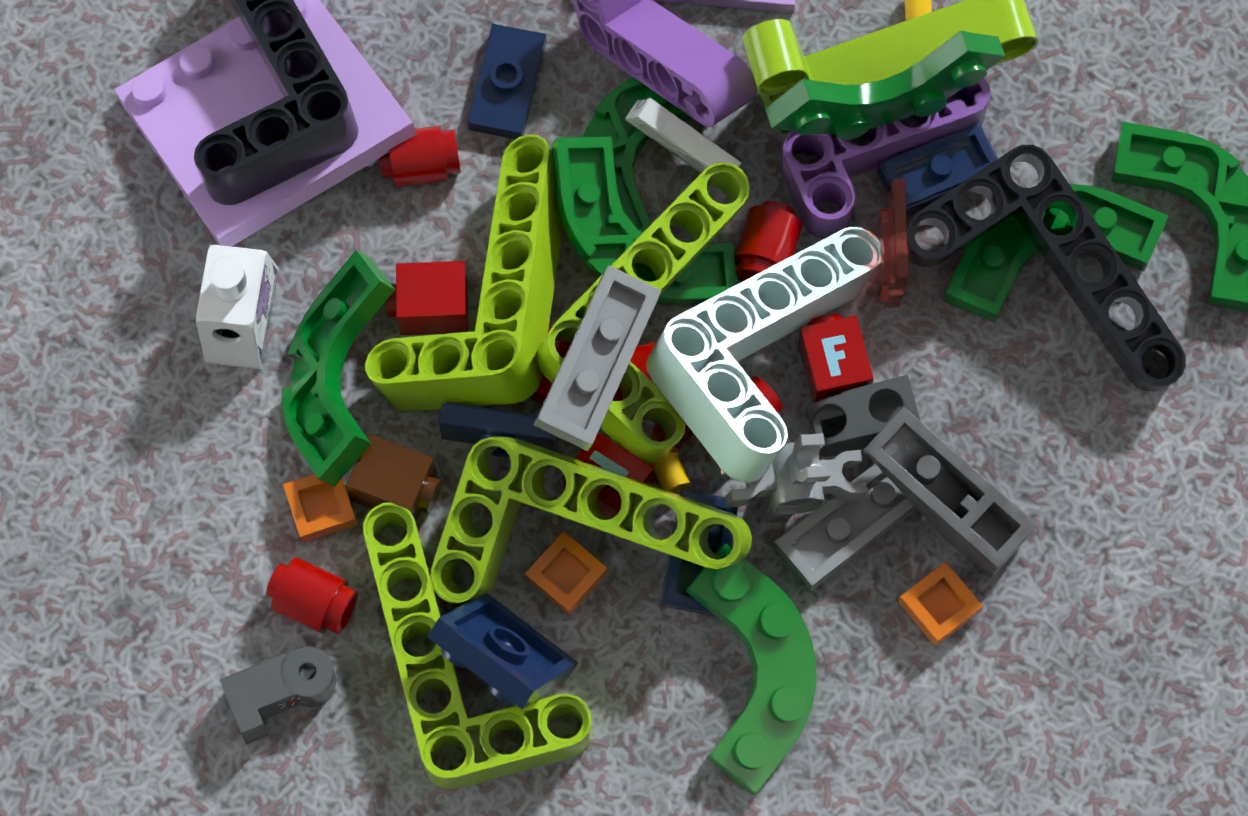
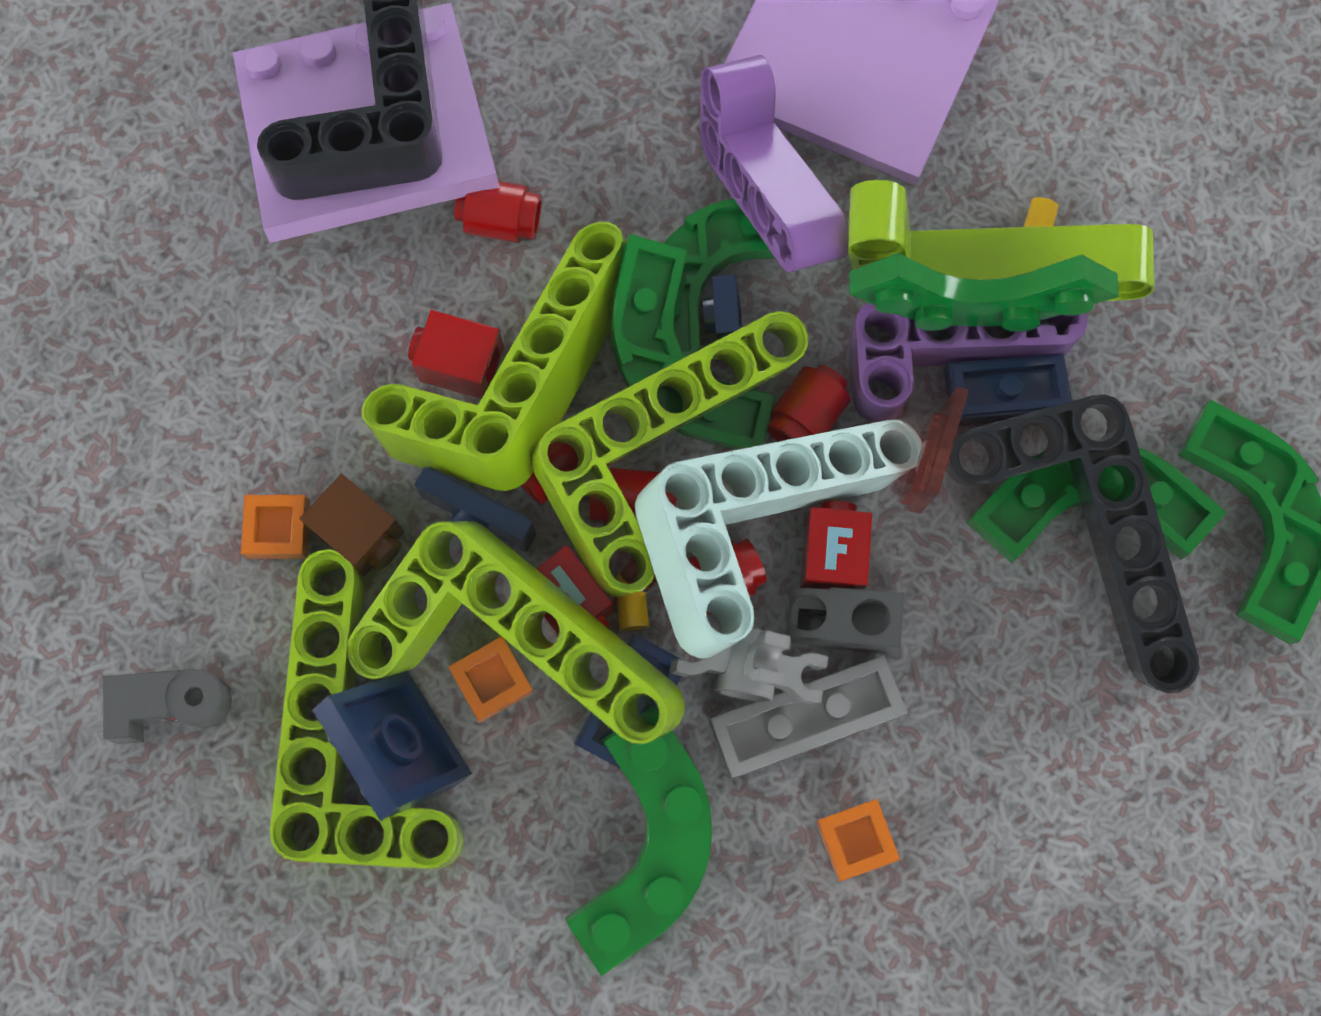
camera: 15 degrees right, 5 degrees up
(237, 297) = (265, 293): white torso -> none
(311, 596) = (231, 618): red brick -> none
(314, 401) = (303, 427): green plate -> none
(507, 81) = (611, 164): dark blue plate -> none
(597, 358) = (583, 478): light grey plate -> none
(659, 180) = (723, 311): none -> dark blue plate
(676, 135) = (755, 271): white tile -> none
(950, 493) = (906, 734): flat silver slope -> none

